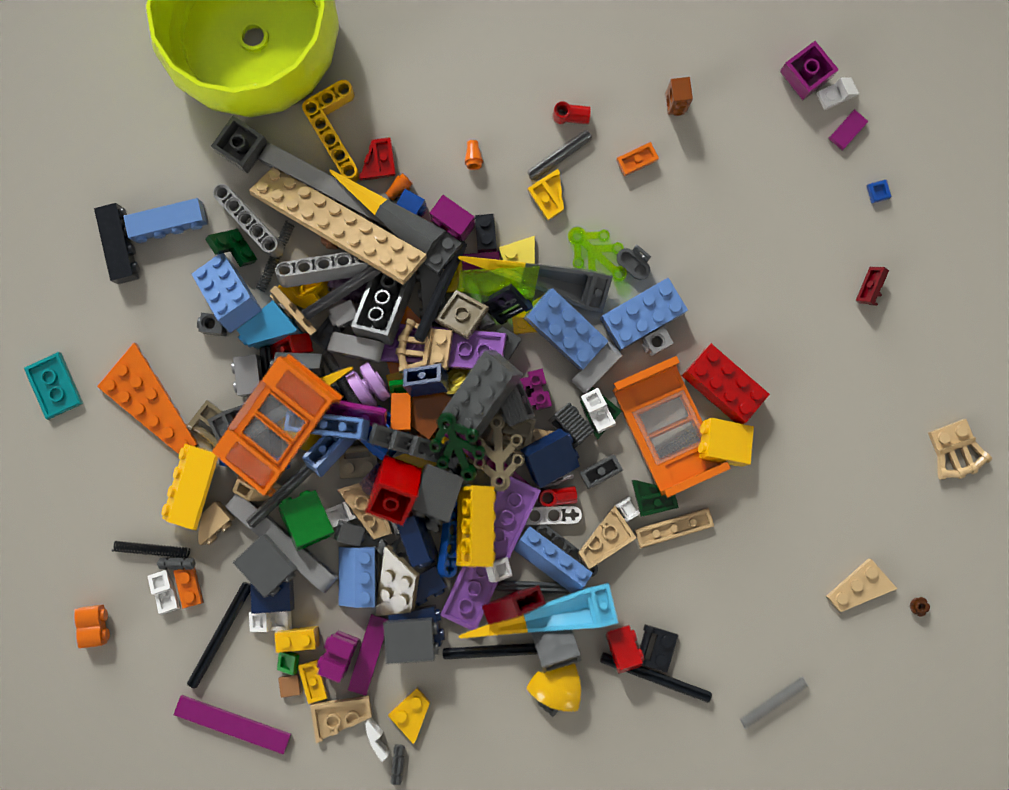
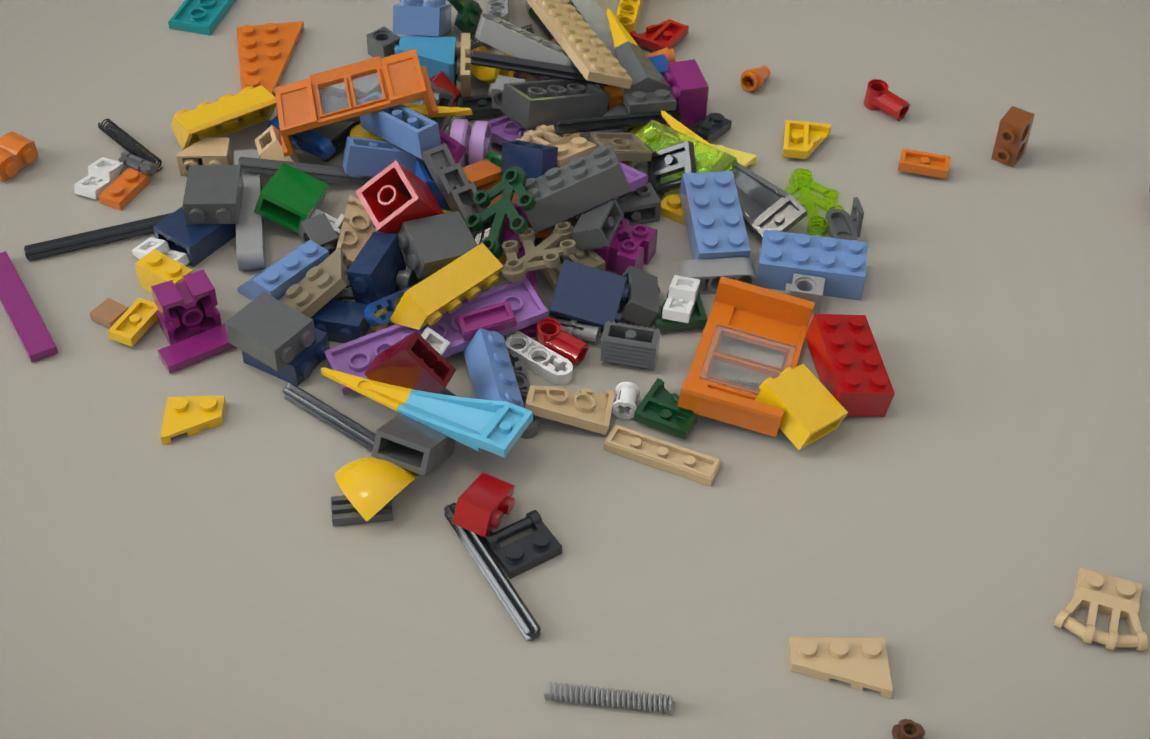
camera: 35 degrees right, 40 degrees down
(288, 662) = (133, 290): green plate -> none
(336, 715) = (121, 363): tan wing -> none
(355, 347) = (501, 118): light grey beam -> none
(373, 733) = (131, 402): white slope -> none
(397, 765) = (121, 445): dark grey axle -> none
(514, 527) = (491, 318): none -> magenta tile
(559, 155) = (849, 122): dark grey axle -> none
(872, 285) = (1106, 398): dark red plate -> none

